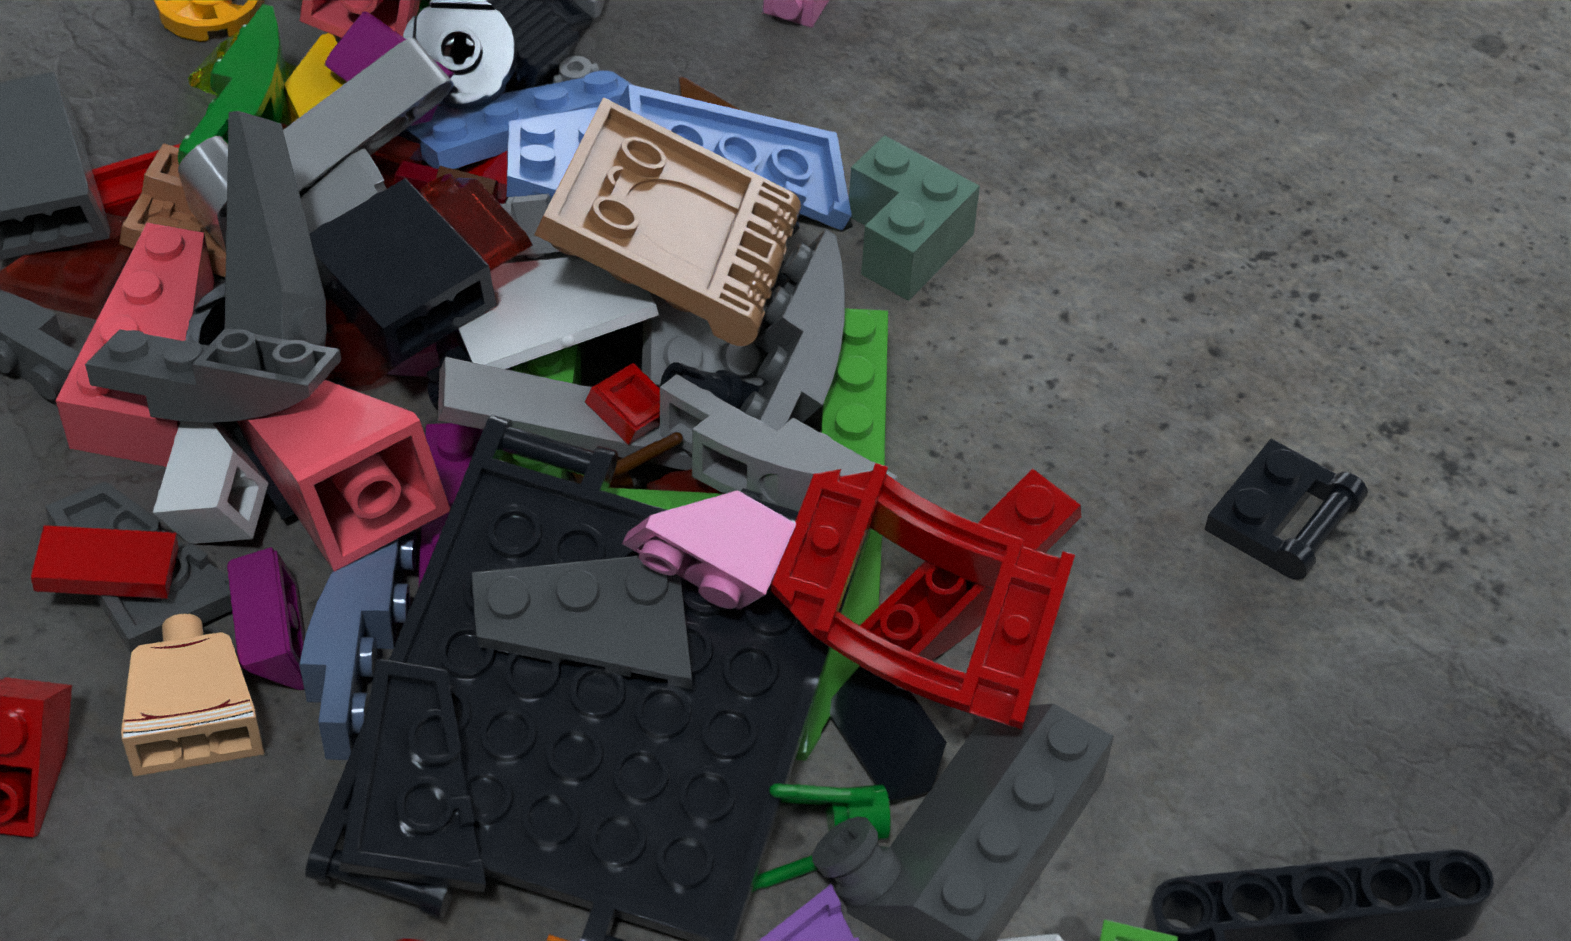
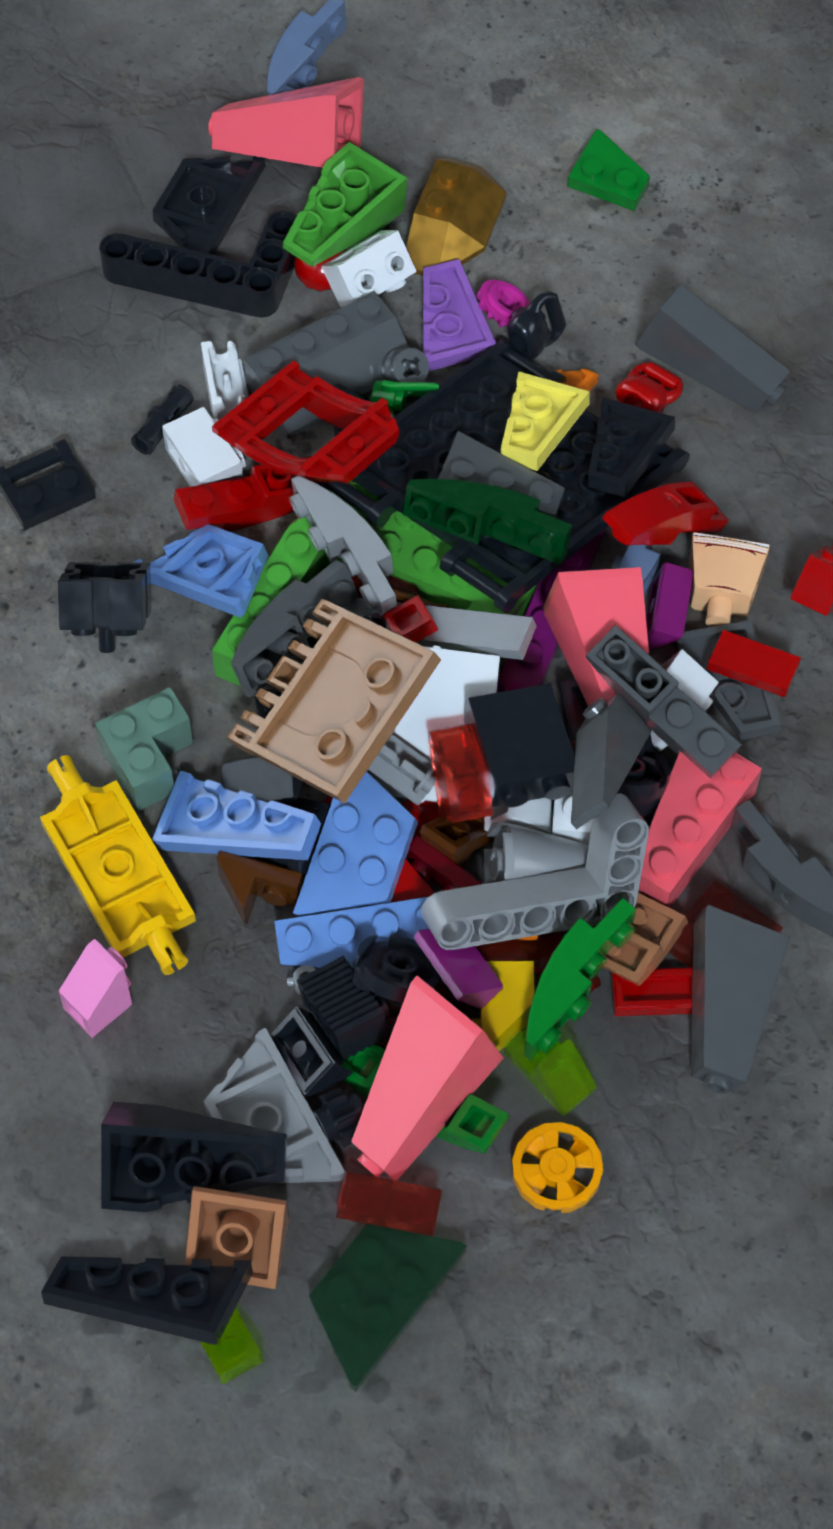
camera: 155 degrees left, 10 degrees up
(293, 693) = (663, 513): none -> red slope
(556, 523) = (483, 509): none -> dark green slope
(572, 776) = (540, 418): none -> light yellow wing
(718, 544) = (416, 456): bright pink slope -> none
(852, 92) = (117, 867): none -> yellow plate
(958, 422) = (212, 568): none -> medium blue wing
(1075, 334) = (106, 598): none -> black brick
(1103, 616) = (200, 452): none -> white brick
(1150, 748) = (223, 378): none -> white hinge
(1186, 653) = (169, 410): none -> black pin

